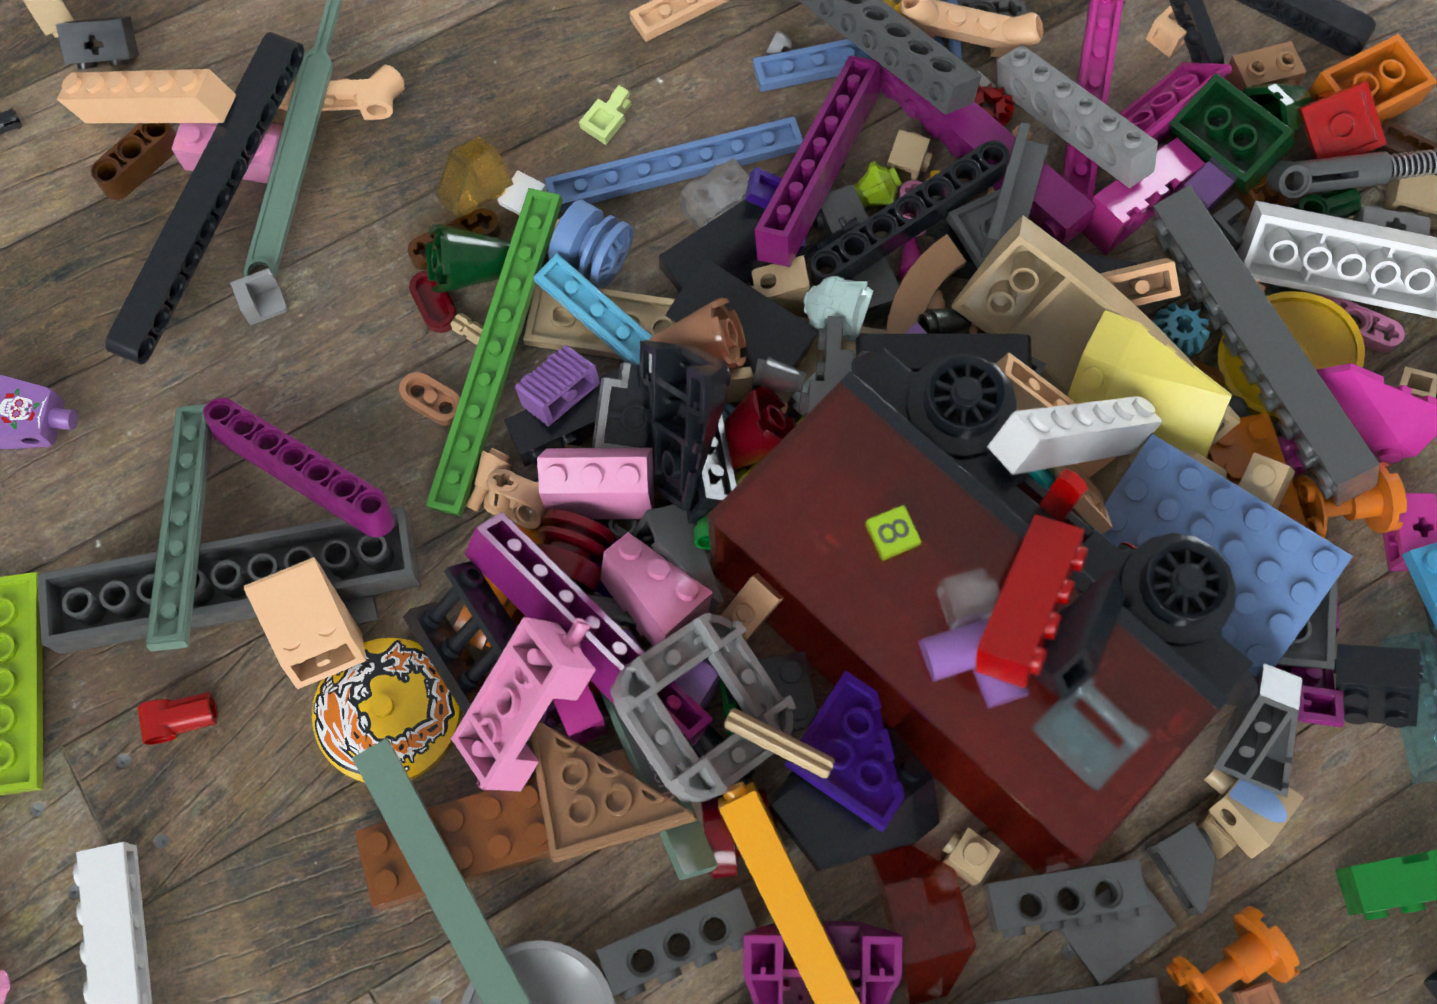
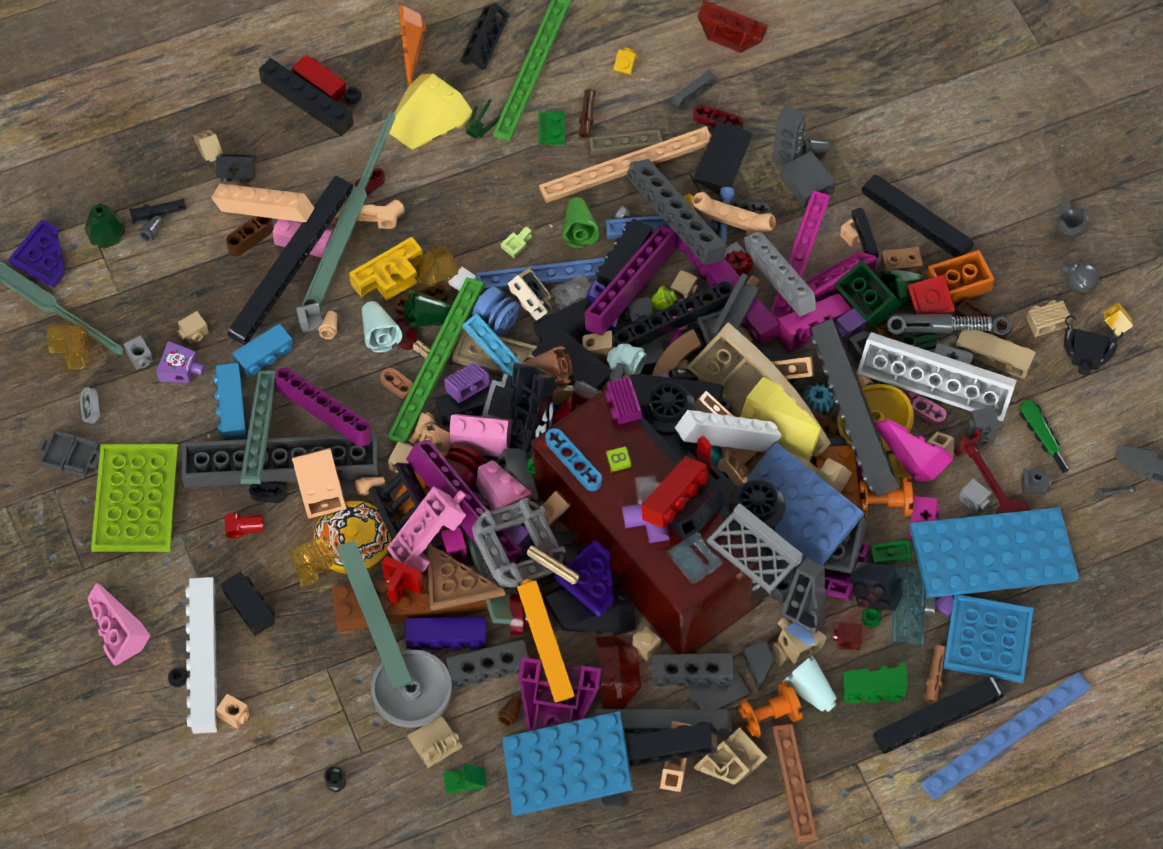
camera: 10 degrees right, 10 degrees down
(47, 343) = (192, 328): none -> tan brick
(129, 473) = (230, 401): none -> dark azure brick
(180, 368) = (263, 350): none -> dark azure brick
(200, 881) = (248, 603): none -> black brick
(217, 650) = (267, 492): none -> black beam
(295, 307) = (328, 327): none -> light nougat cone
(309, 780) = (310, 558): none -> clear yellow brick
(345, 43) = (374, 183): none -> dark red beam
(385, 301) = (379, 328): none -> light aqua cone
(390, 194) = (389, 272): none -> yellow piece
(398, 601) = (363, 484): none -> light nougat cone
(454, 539) = (399, 455): none -> tan brick
(486, 809) = (401, 577): none -> red bracket
(587, 889) = (446, 633): none -> dark purple brick
(647, 204) = (531, 293): none -> tan piece
(710, 71) = (579, 224): none -> bright green cone
(799, 104) = (624, 249): none -> black brick
(807, 540) = (572, 460): none -> dark azure beam
(882, 408) = (623, 400): none -> magenta brick
(1231, 665) = (764, 534): none -> light grey fence
(1292, 896) = (812, 685): none -> light aqua cone
(1335, 783) = (848, 636): none -> clear red brick
(1364, 739) = (871, 618): none -> green plate
(1372, 604) = (891, 552): none -> green plate

